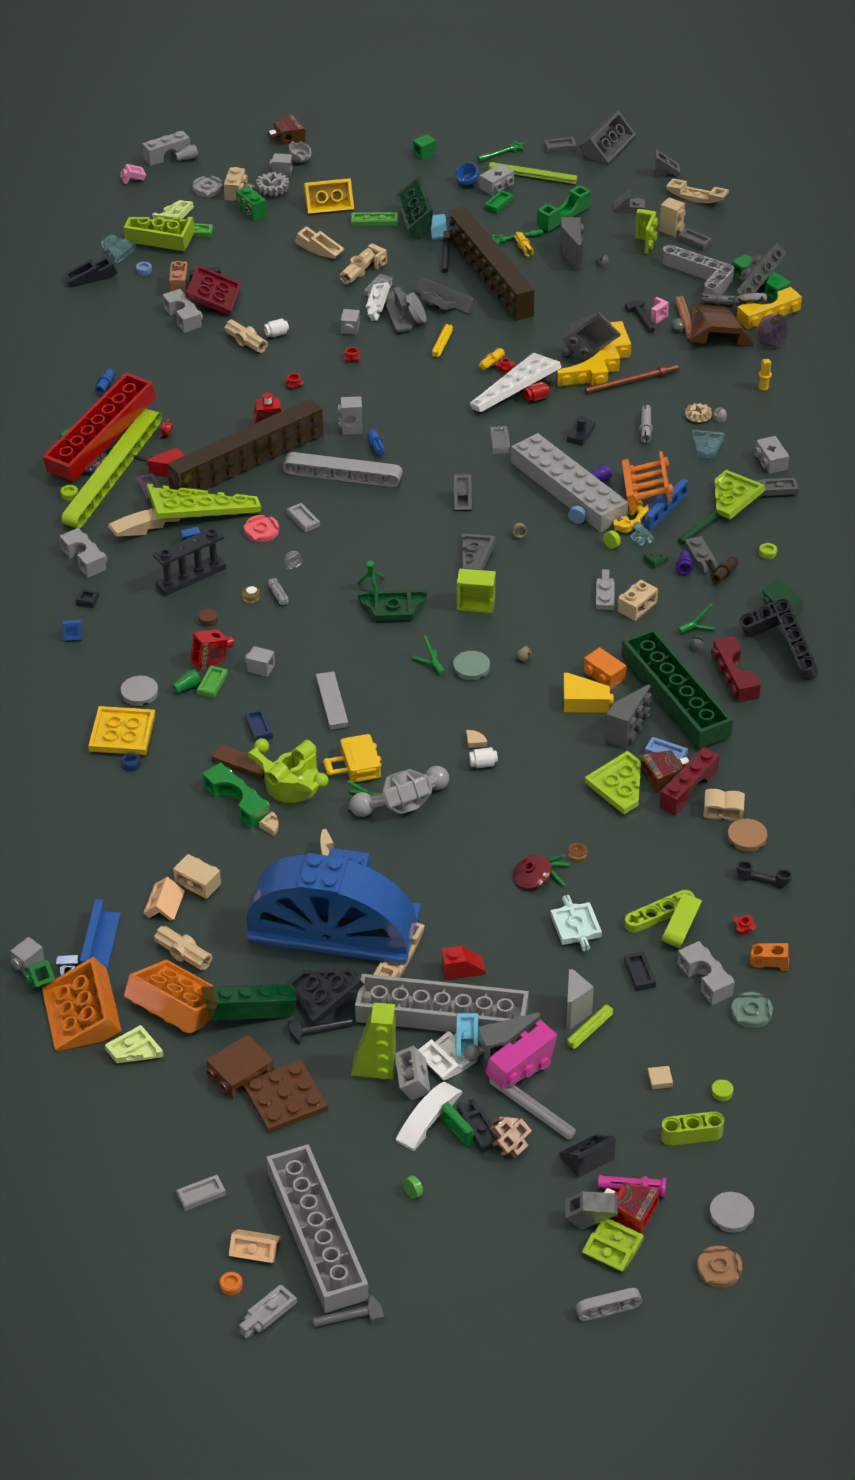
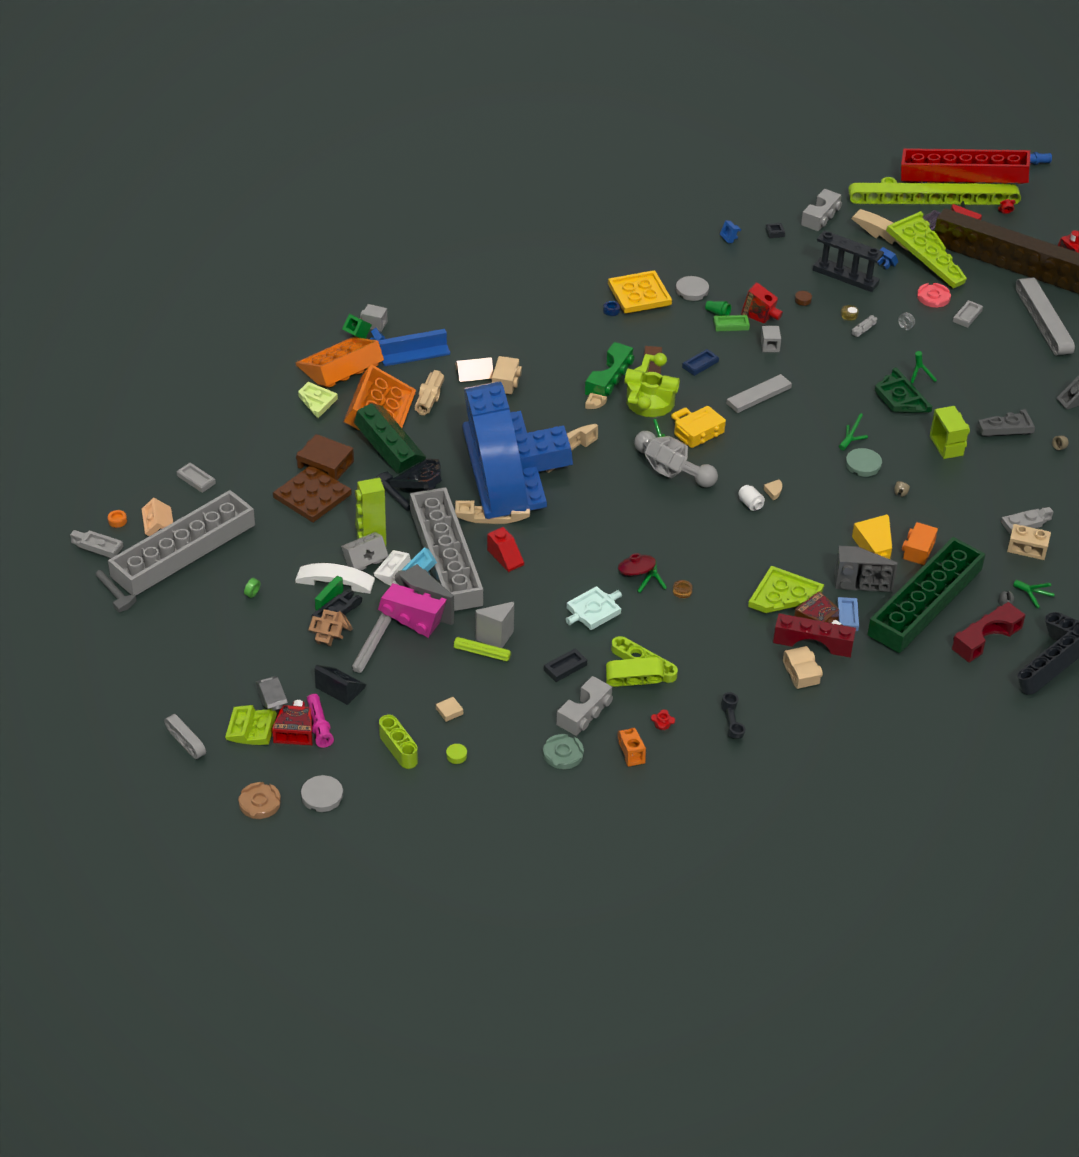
camera: 65 degrees right, 0 degrees up
(747, 835) = (778, 695): medium nougat tile -> none

